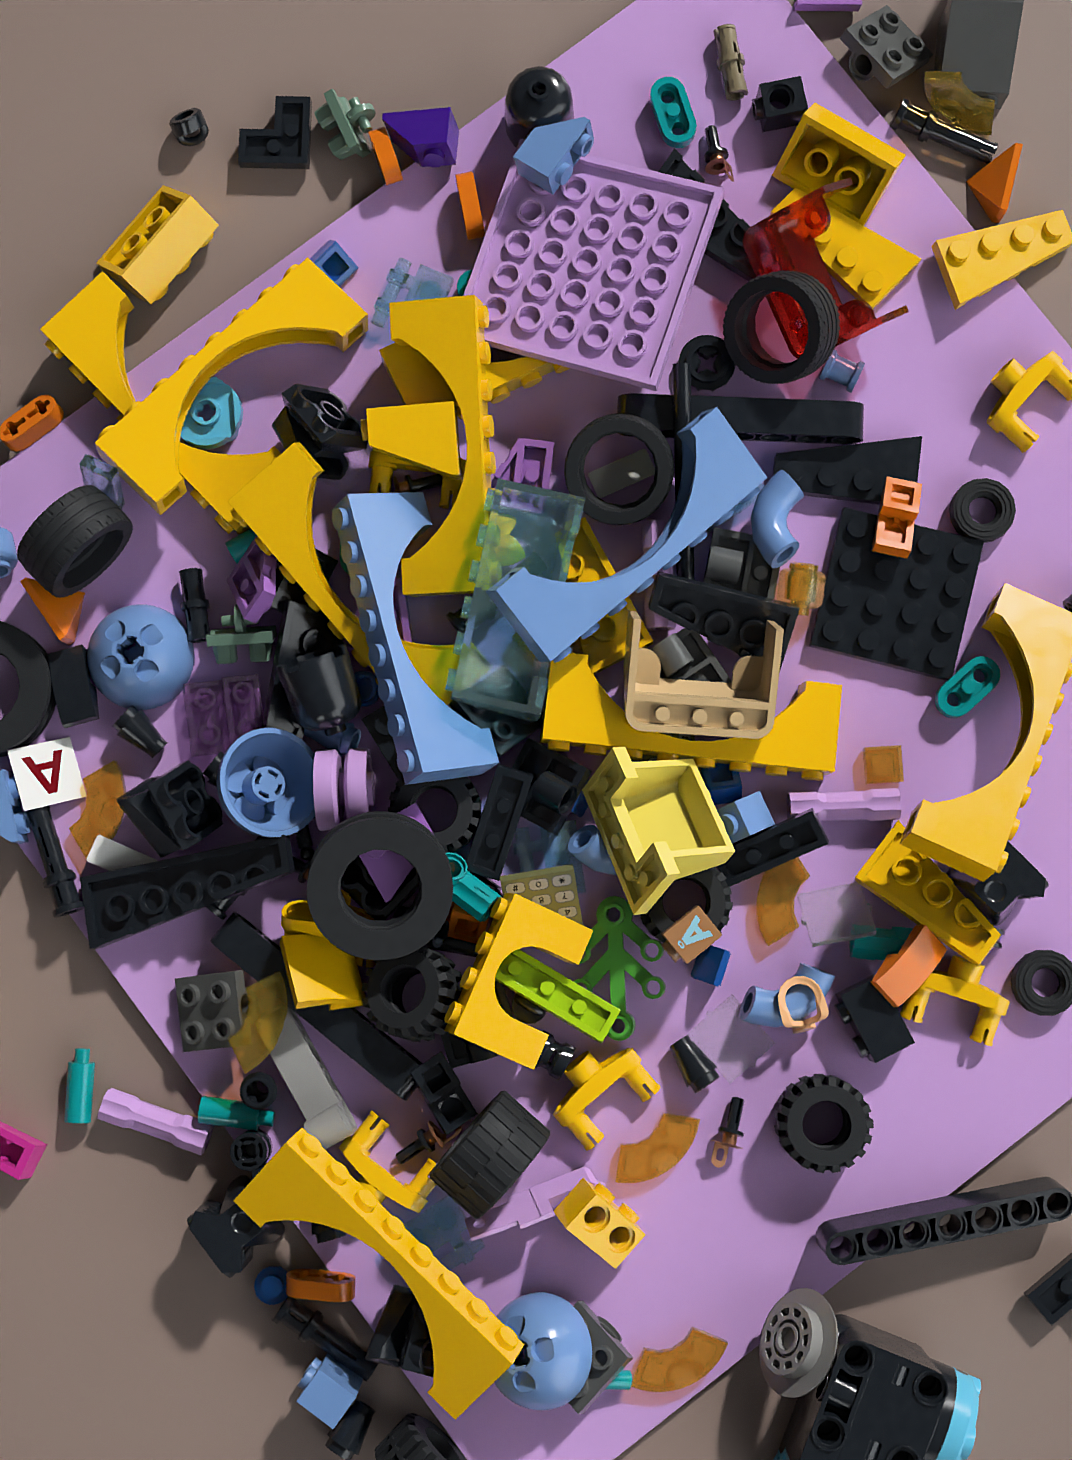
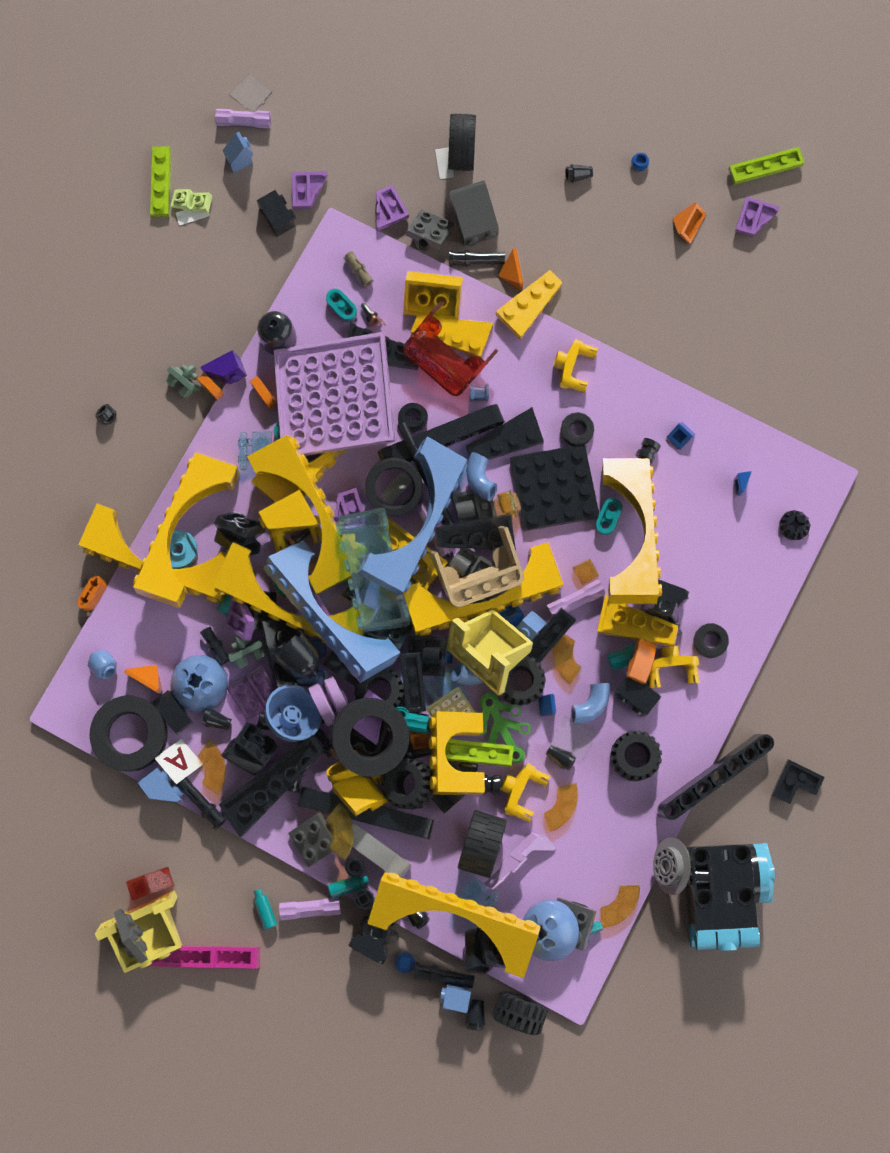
camera: 25 degrees left, 5 degrees down
(74, 540) = (143, 639): black tyre -> none
(103, 477) = (143, 606): clear light blue tile -> none
(114, 855) = (230, 786): white sticker -> none
(158, 244) = (116, 478): yellow slope -> none
(286, 144) = (157, 403): black plate -> none
(320, 1285) = (428, 950): orange beam -> none
(334, 262) = (208, 448): blue slope -> none
(376, 1178) = (452, 885): yellow connector -> none
(425, 1140) = (448, 854): piece -> none
(443, 1093) = (445, 827): black slope -> none
(553, 151) = (292, 350): medium blue slope -> none
(596, 1225) = (550, 854): yellow brick -> none
(690, 935) = (530, 693): medium nougat brick -> none
(729, 1132) = (594, 782): piece -> none
(741, 327) = (426, 400): black tyre -> none
(790, 93) = (392, 271): black brick -> none
(821, 1005) = (605, 714): light nougat piece -> none
(836, 914) = (596, 653): clear piece -> none
(897, 517) = (537, 450): orange slope -> none
(955, 101) = (479, 242): clear yellow tile -> none

